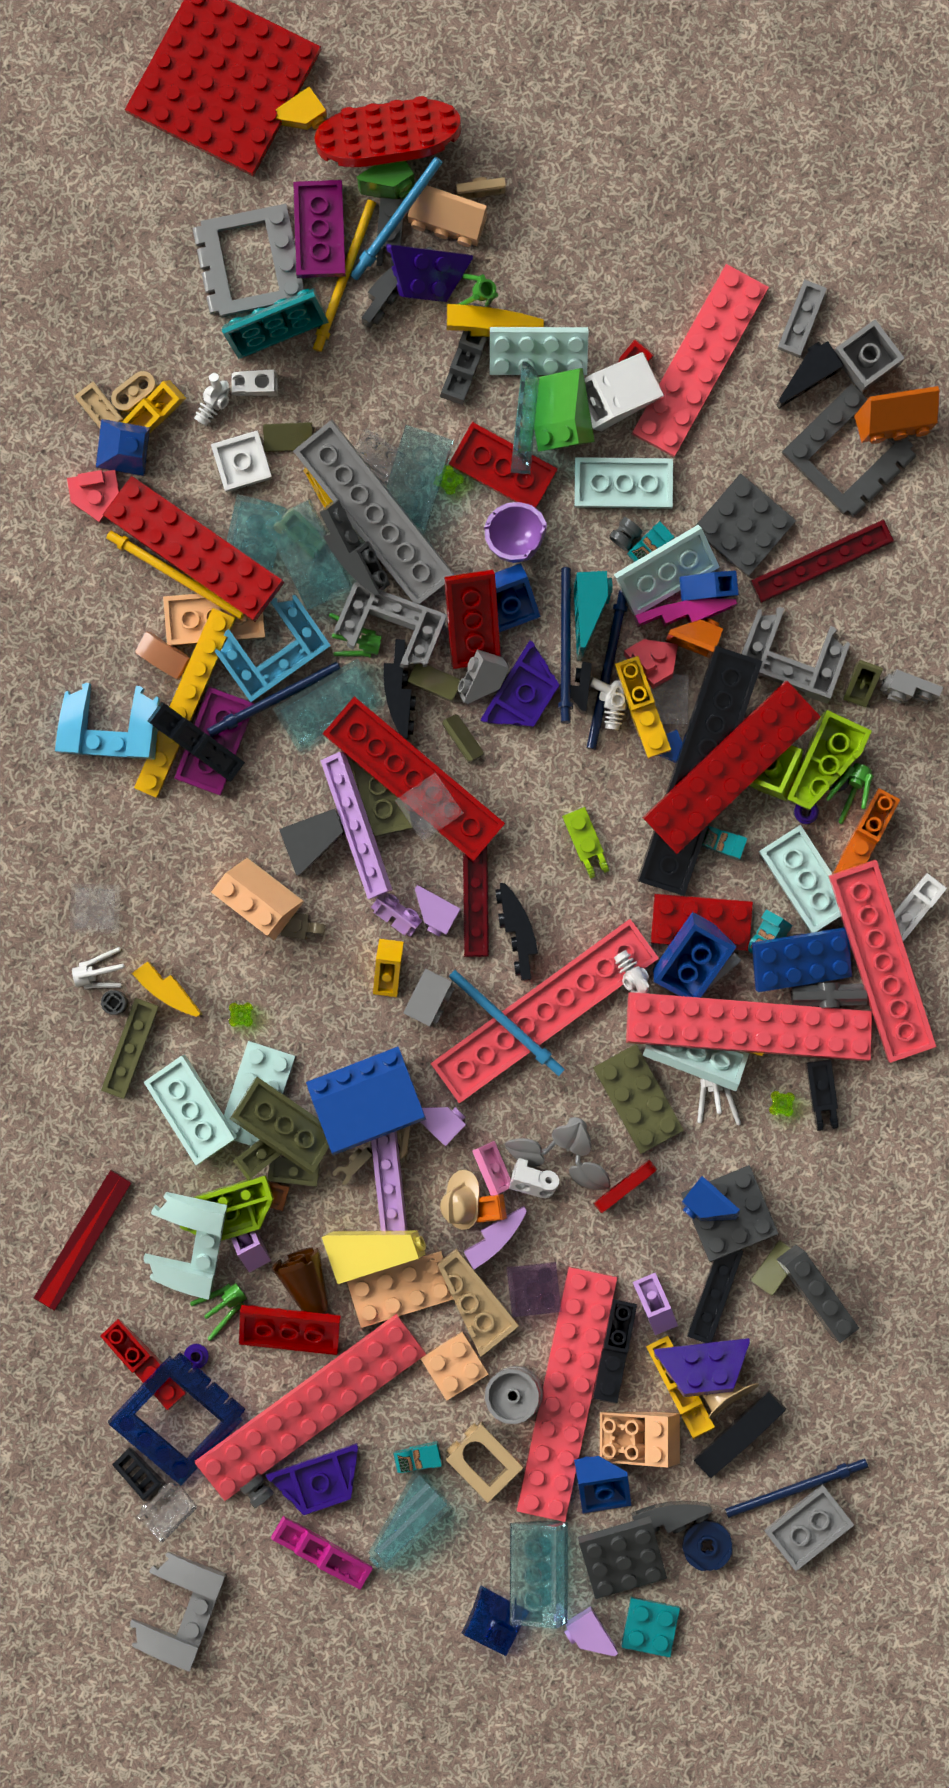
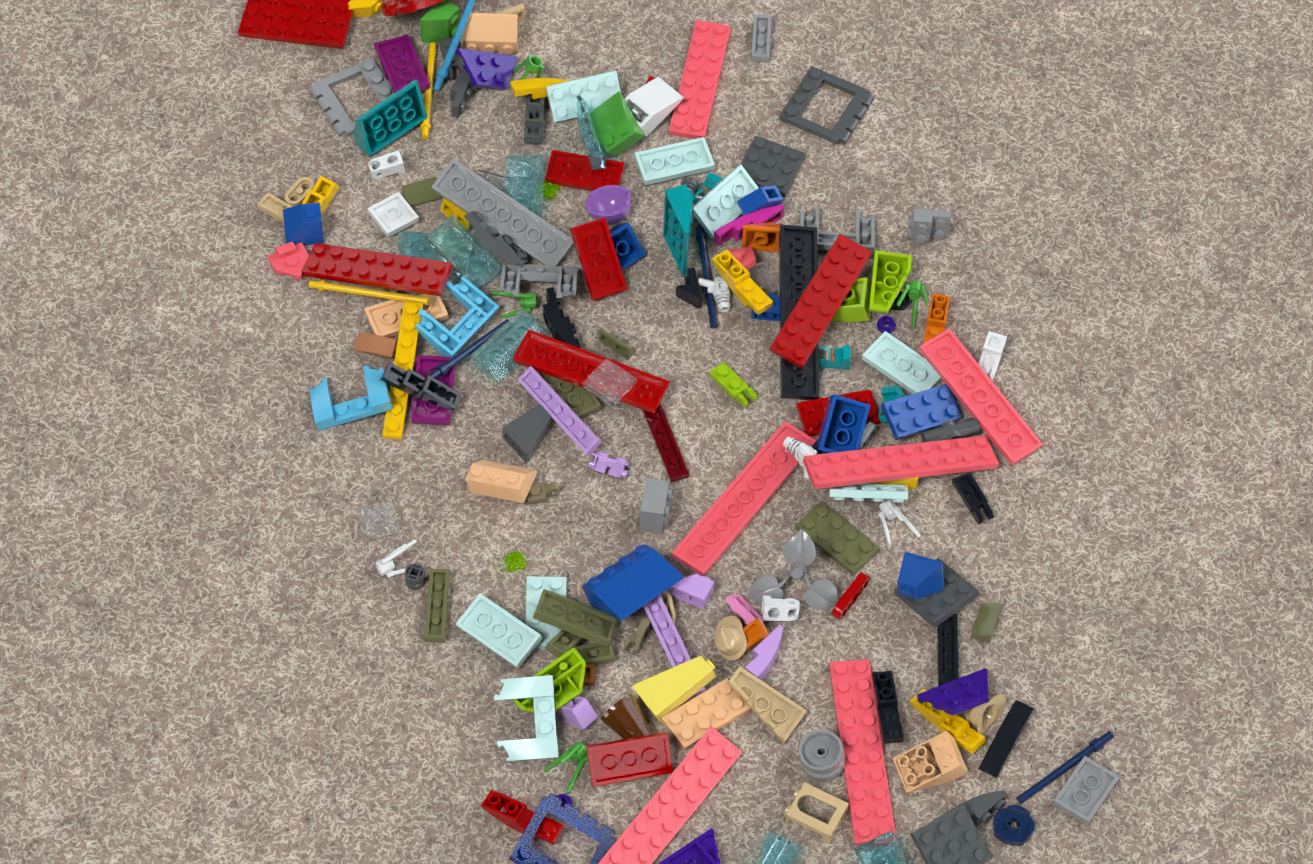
camera: 20 degrees left, 30 degrees down
(82, 1240) = (443, 748): dark red tile -> none
(166, 989) = (452, 558): yellow slope -> none
(215, 398) = (359, 182): white piece -> none
(388, 967) = (616, 500): yellow slope -> none
(418, 1457) = (769, 821): teal leg -> none
(434, 682) = (584, 315): olive slope -> none
(436, 911) = (638, 453): lavender slope -> none
(454, 1366) = (767, 756): light nougat plate -> none
(483, 676) = (618, 296): light grey slope -> none
(516, 920) = (704, 447): black slope -> none
(523, 692) = (651, 303): dark purple wing -> none
(534, 1289) = (808, 683): clear purple plate -> none
(543, 1056) = (754, 522): dark azure bar -> none
(565, 704) = (685, 293): dark blue bar -> none
(601, 1484) = (914, 803): blue slope -> none
(655, 1304) = (906, 668): lavender slope -> none
(788, 1100) = (945, 507): clear neon green plate -> none
(815, 368) = (783, 62): black slope -> none
(817, 1293) = (1024, 621): dark grey brick -> none
(822, 561) = (833, 174): dark red tile -> none
(862, 683) = (893, 233): olive slope -> none
(868, 356) = (816, 44): light grey brick -> none
(898, 415) = (851, 68): orange slope -> none

